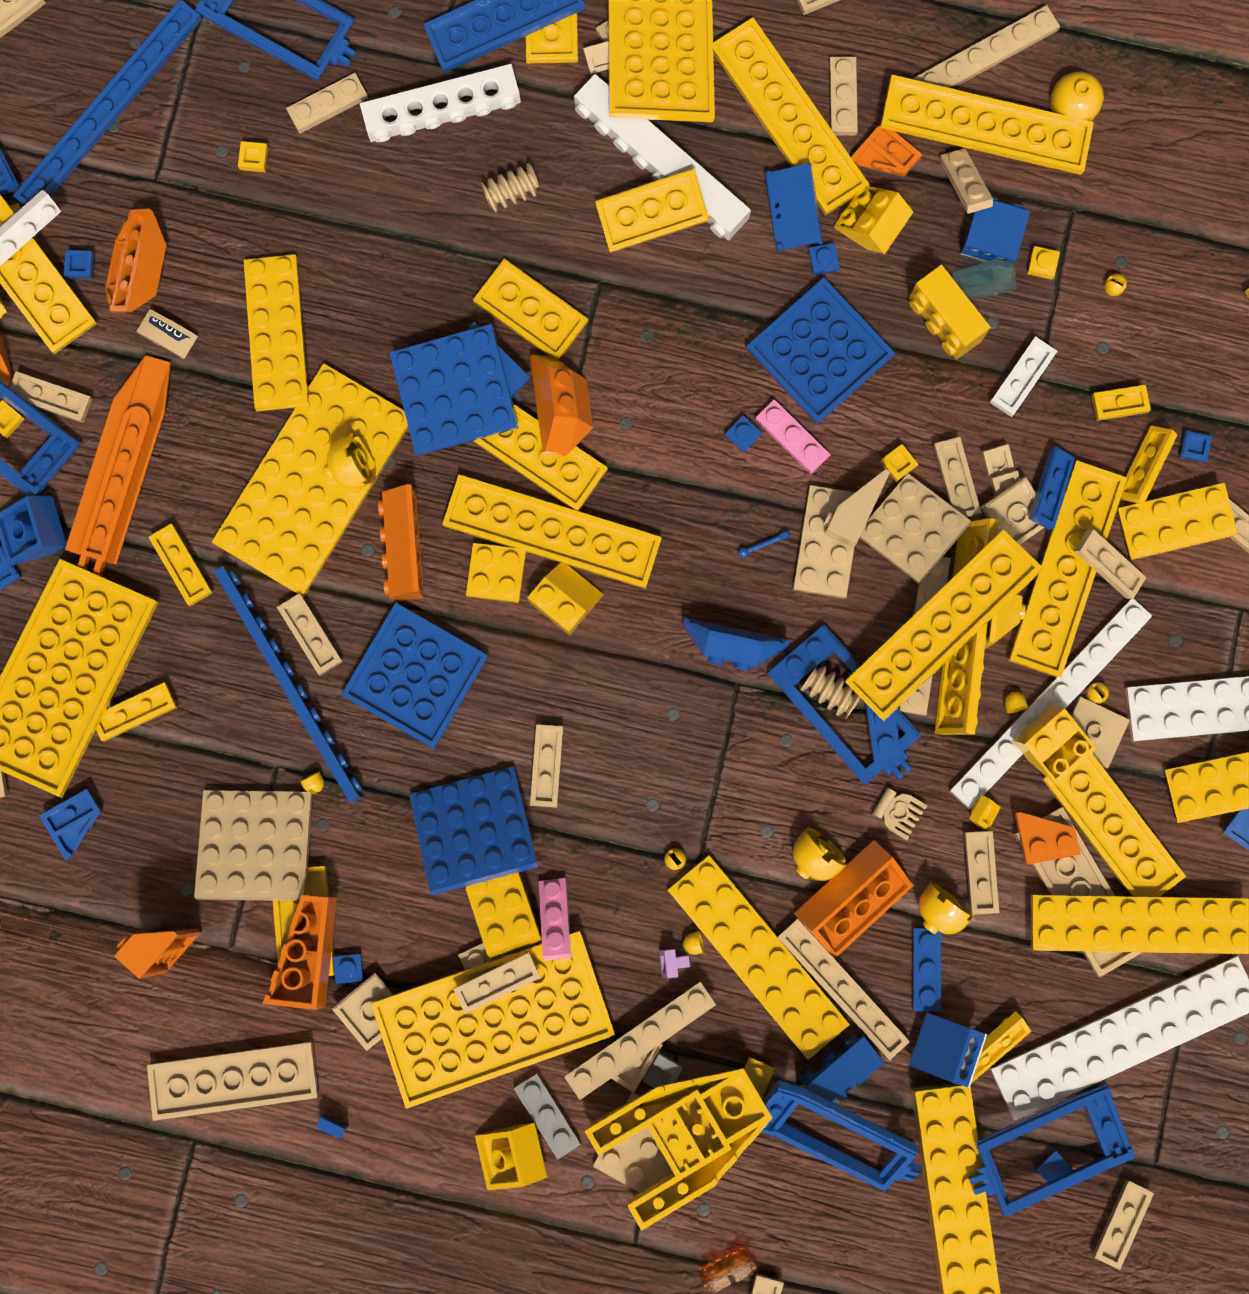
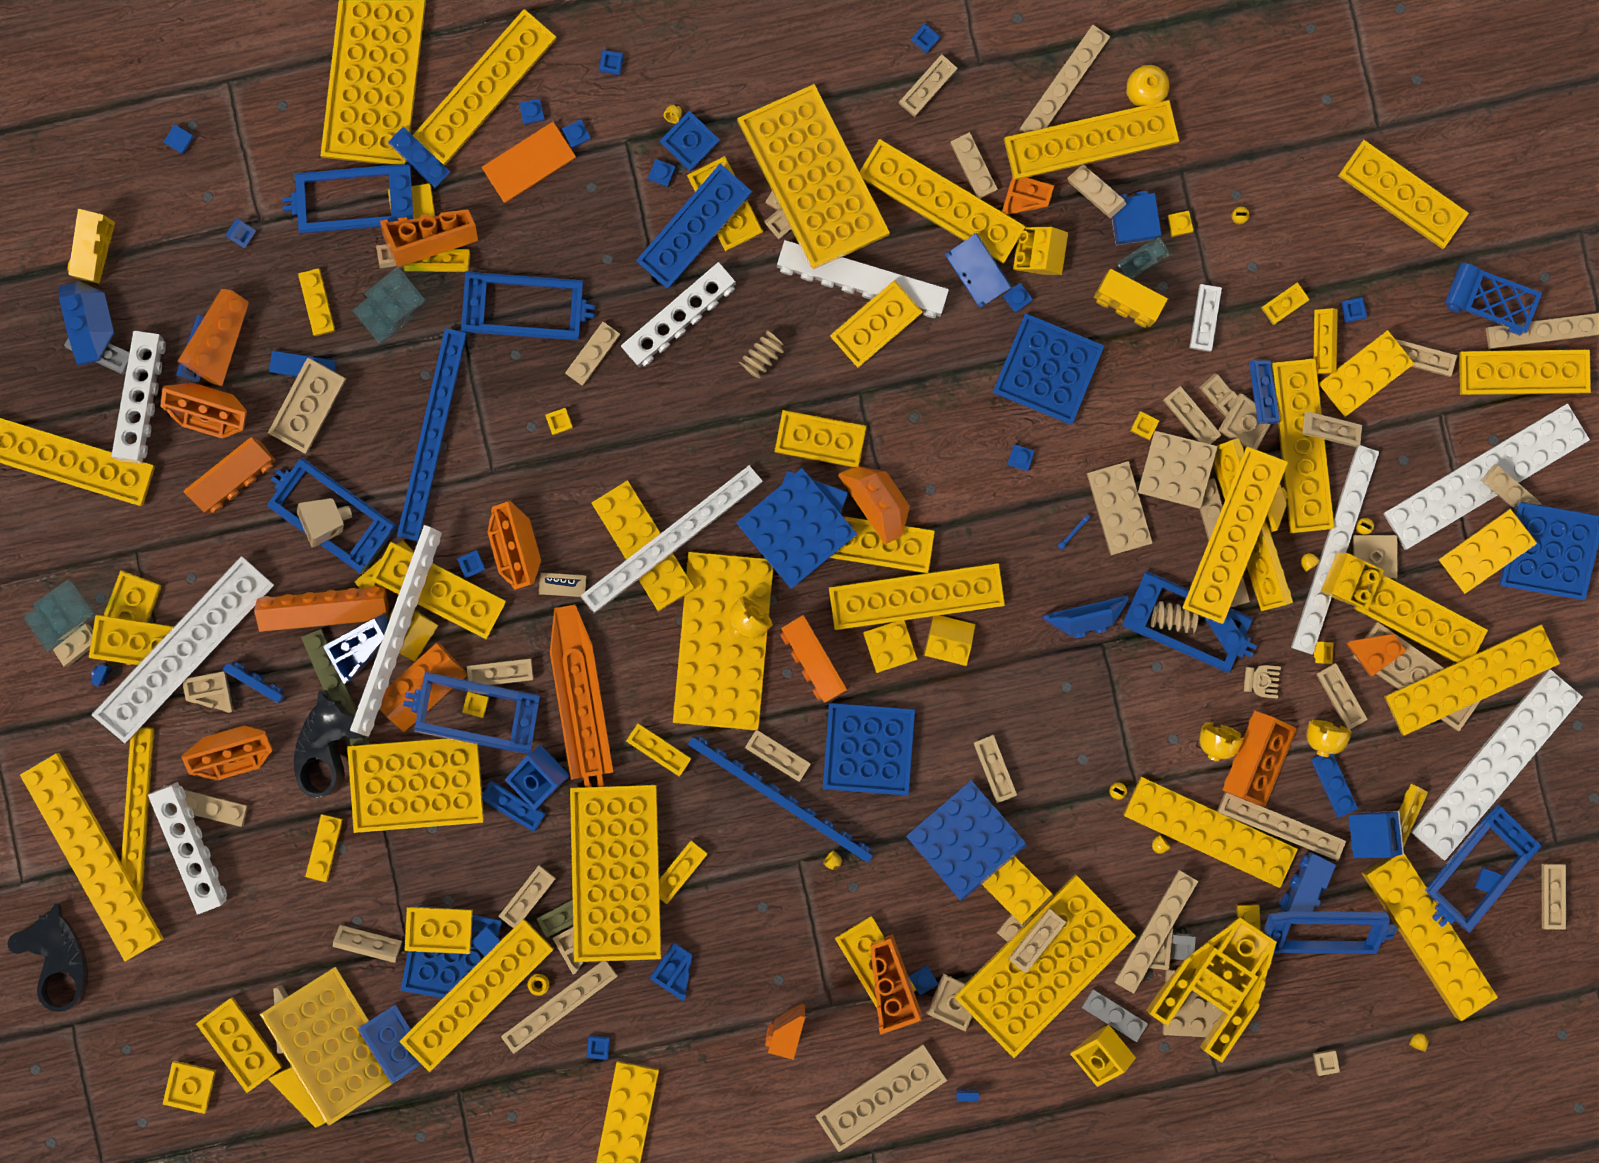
camera: 25 degrees left, 5 degrees up
(253, 845) = (814, 926): tan plate -> none
(307, 336) = (671, 539): none -> white plate
(554, 919) = (1054, 875): bright pink plate -> none
(670, 963) = (1151, 866): lavender tile -> none
(715, 1273) = (1285, 1066): clear orange hinge -> none
(792, 437) = (1057, 442): bright pink plate -> none
(853, 513) = (1130, 483): tan slope -> none

